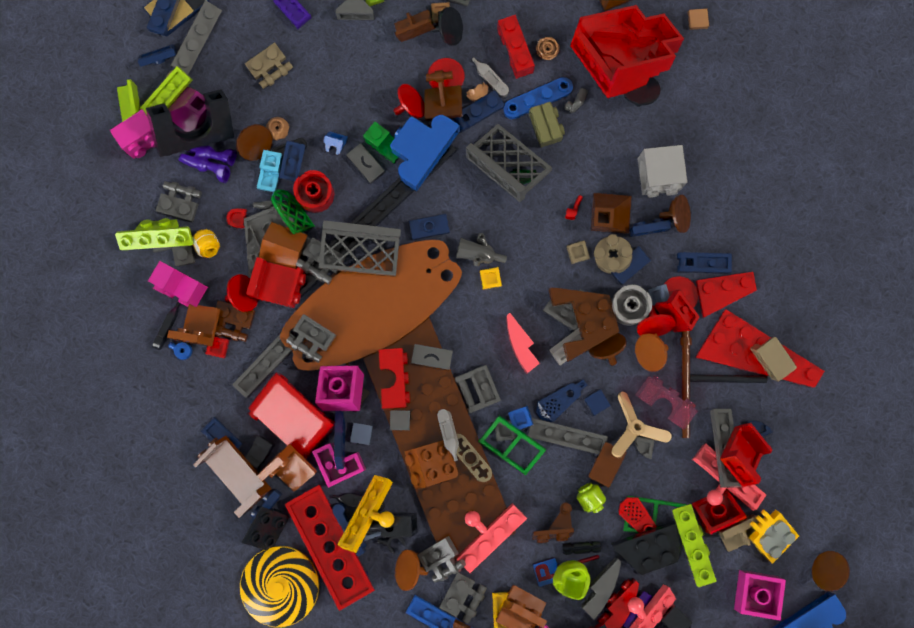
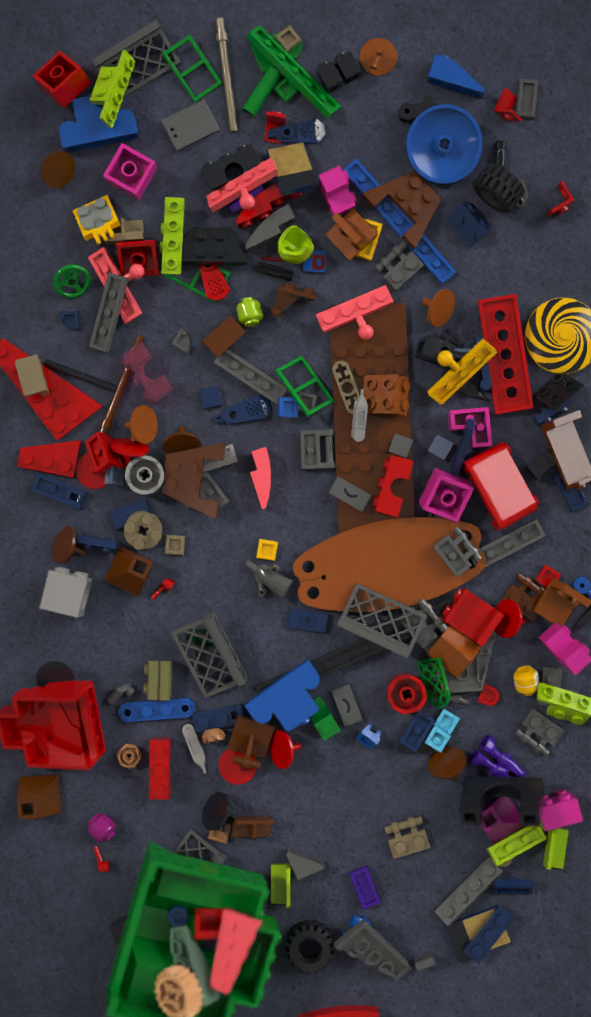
camera: 160 degrees left, 5 degrees up
(283, 129) = (413, 771): medium nougat plate -> none
(289, 467) = (517, 438): dark orange bracket -> none
(436, 555) = (410, 311): dark grey plate -> none
(631, 433) = (178, 356): tan piece -> none
(744, 454) = (94, 300): red panel -> none
(777, 473) = (71, 272): none -> green piece

